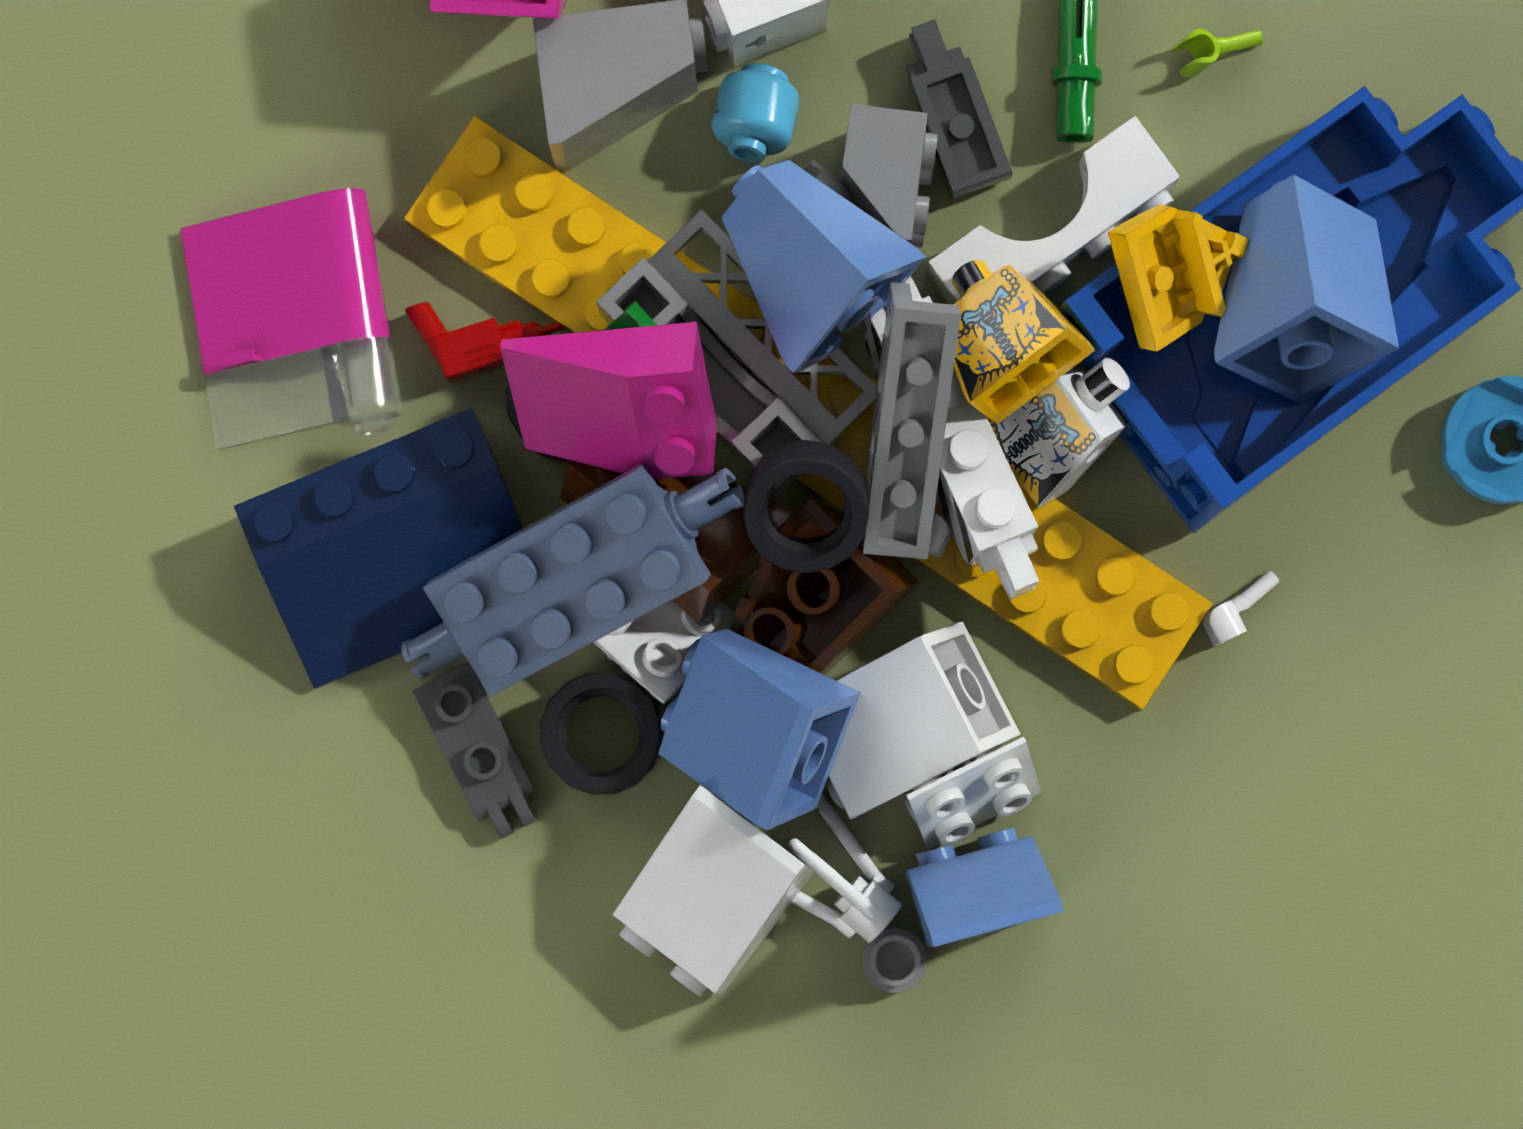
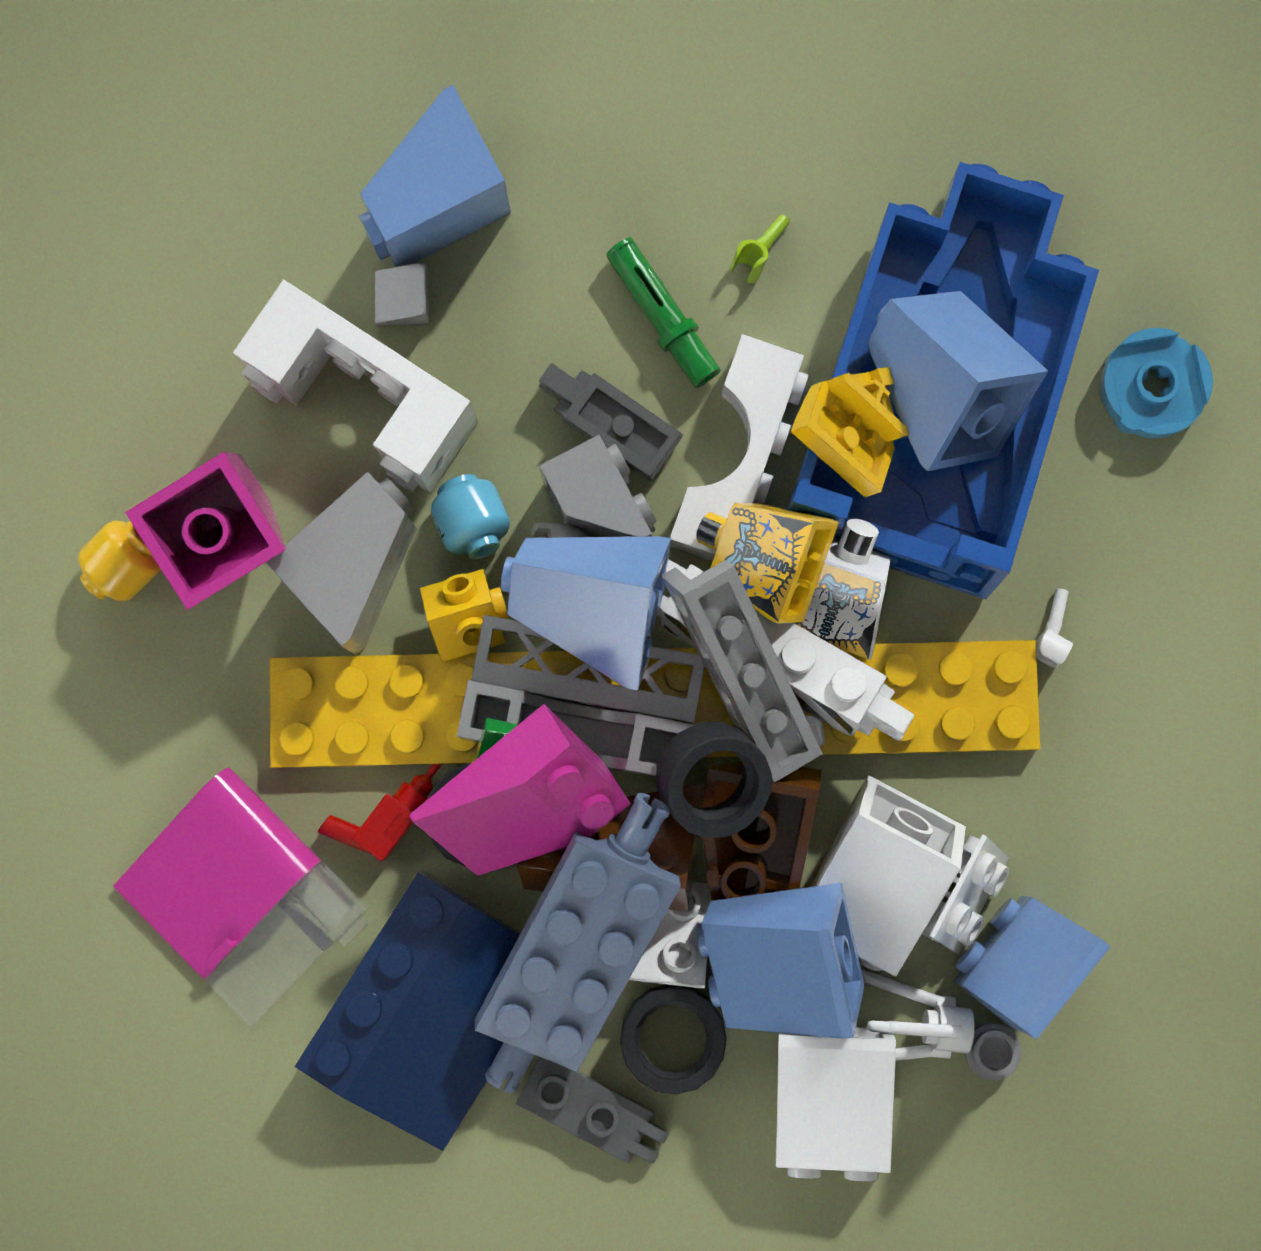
camera: 40 degrees left, 0 degrees up
(677, 190) = (457, 612): none -> yellow brick

